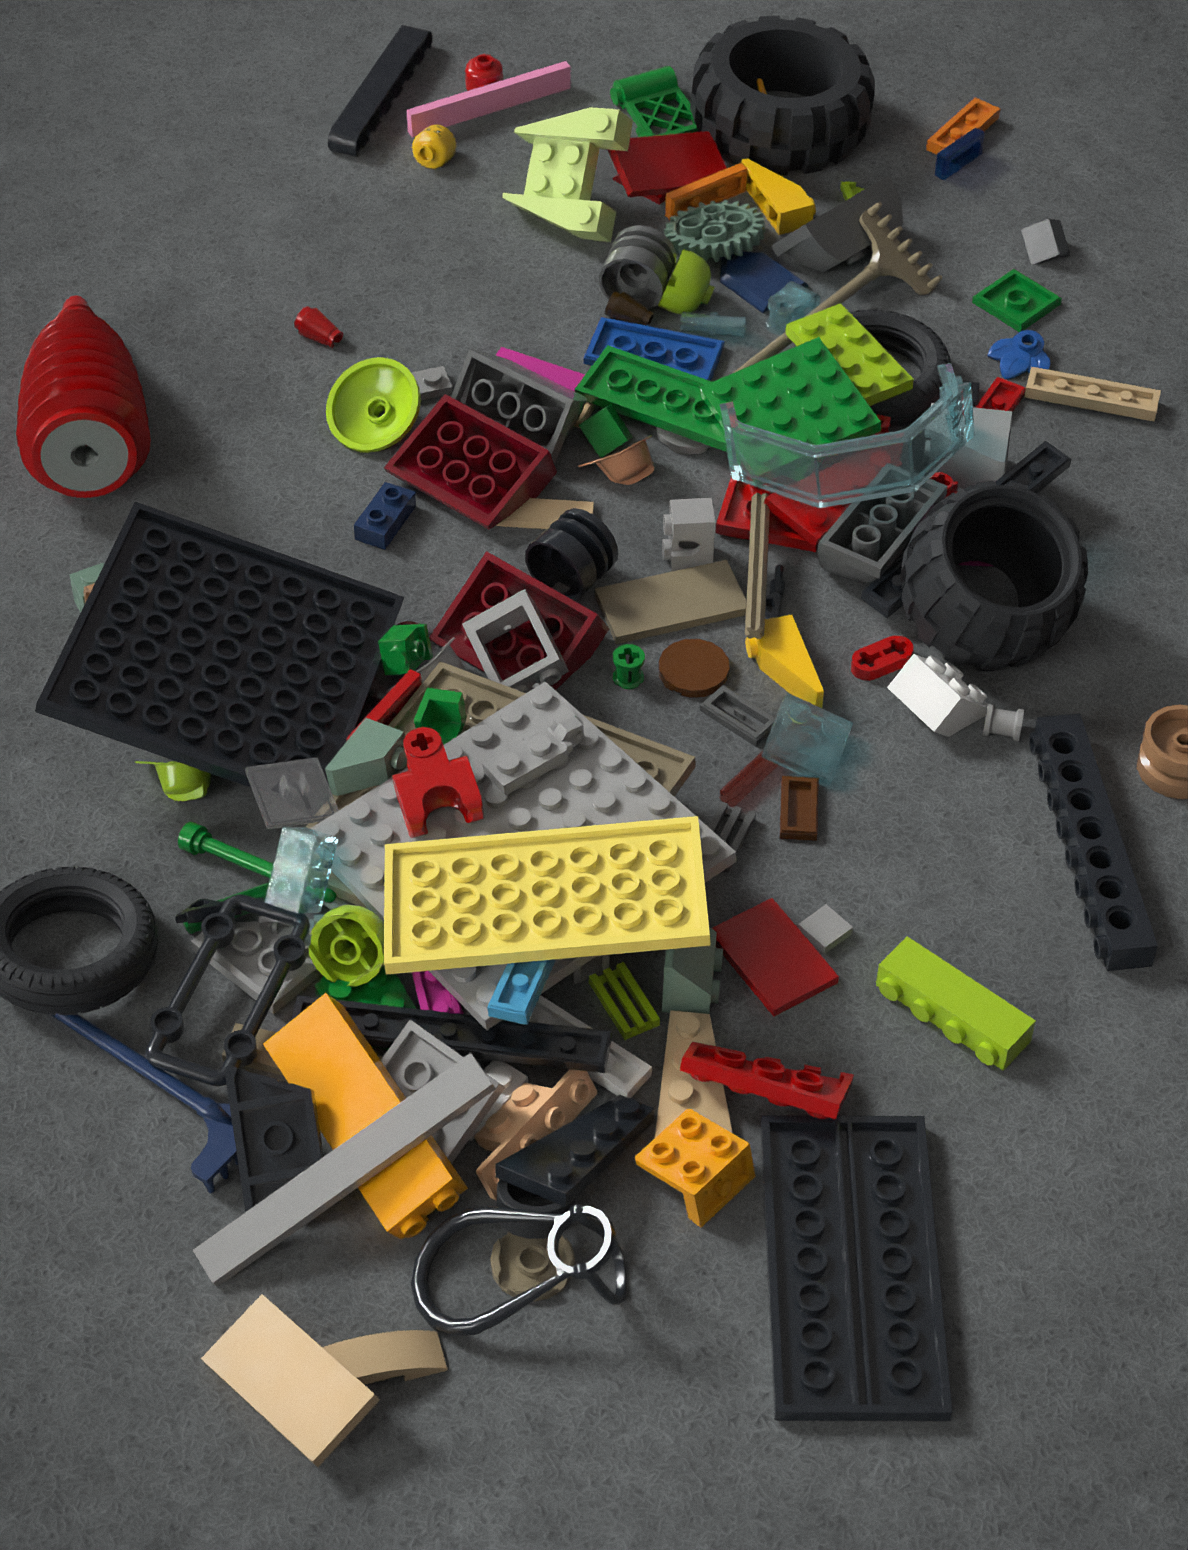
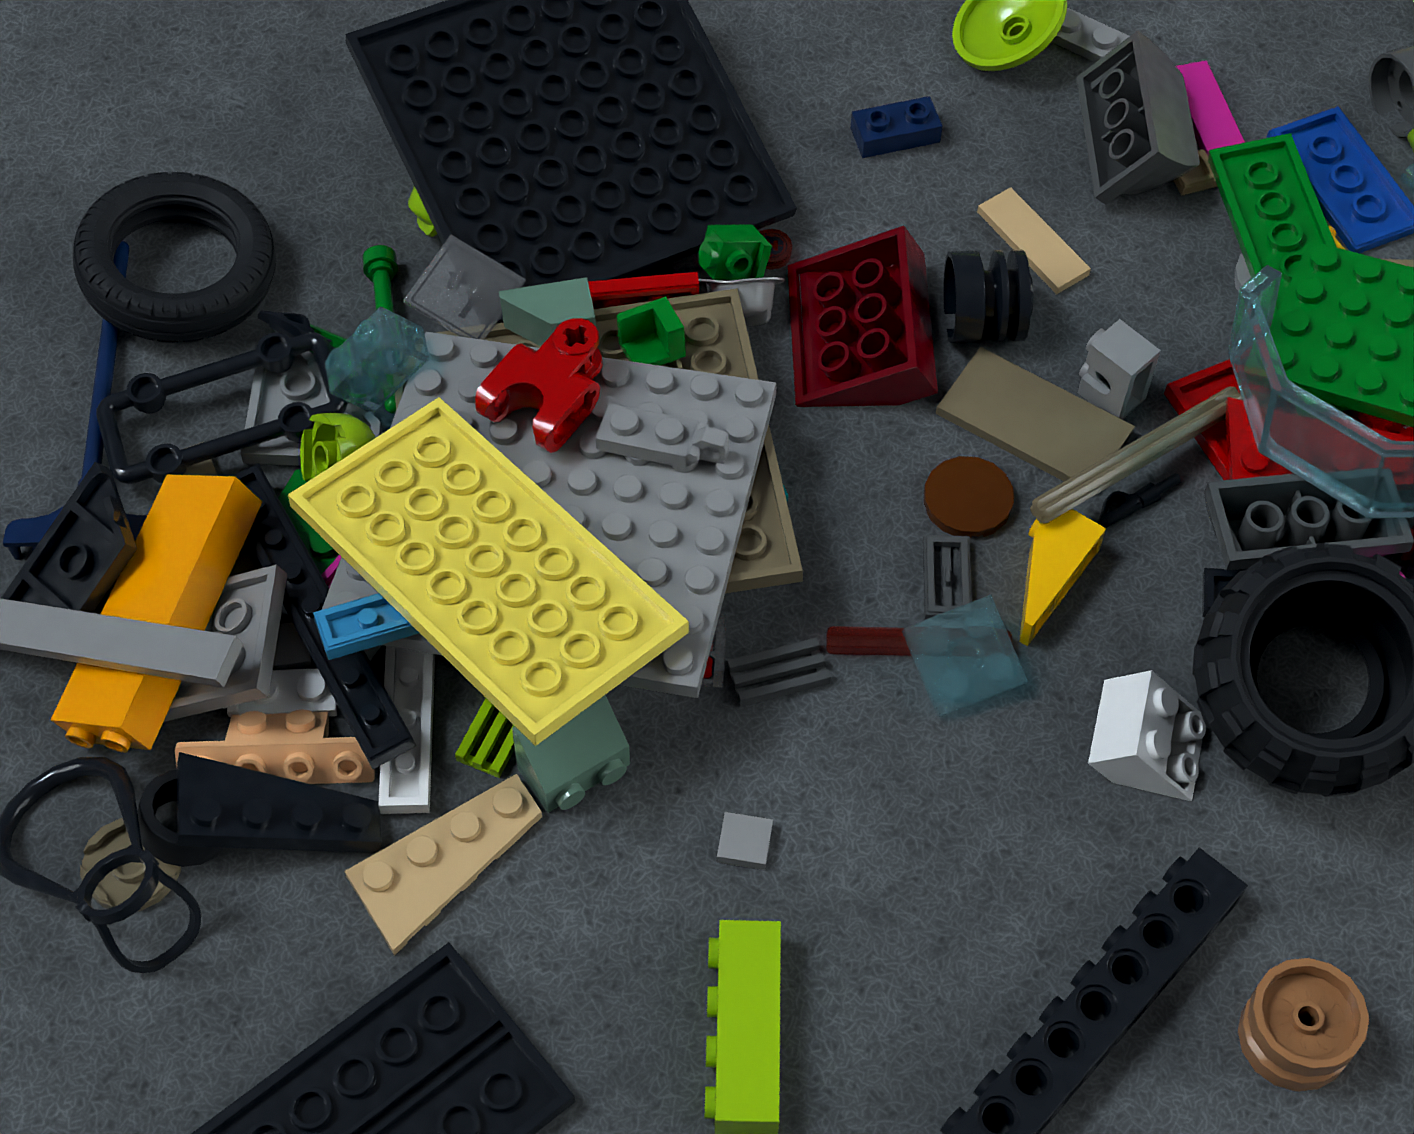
camera: 50 degrees right, 10 degrees up
(472, 463) = (1020, 143): dark red slope -> none
(504, 618) = (830, 295): light grey window -> none
(605, 430) = (1191, 212): green panel -> none
(627, 309) = (1370, 118): dark brown cone -> none
(627, 465) = (1165, 260): nougat piece -> none
(636, 661) = (900, 437): green bush -> none
(699, 1162) = (339, 926): light orange bracket -> none
(768, 1078) = (499, 941): red wing -> none
(774, 957) = (667, 818): red tile -> none
(799, 808) = (879, 711): reddish brown tile -> none
(881, 656) = (1150, 649): red beam -> none
(1003, 722) = (1174, 820): light grey bush -> none

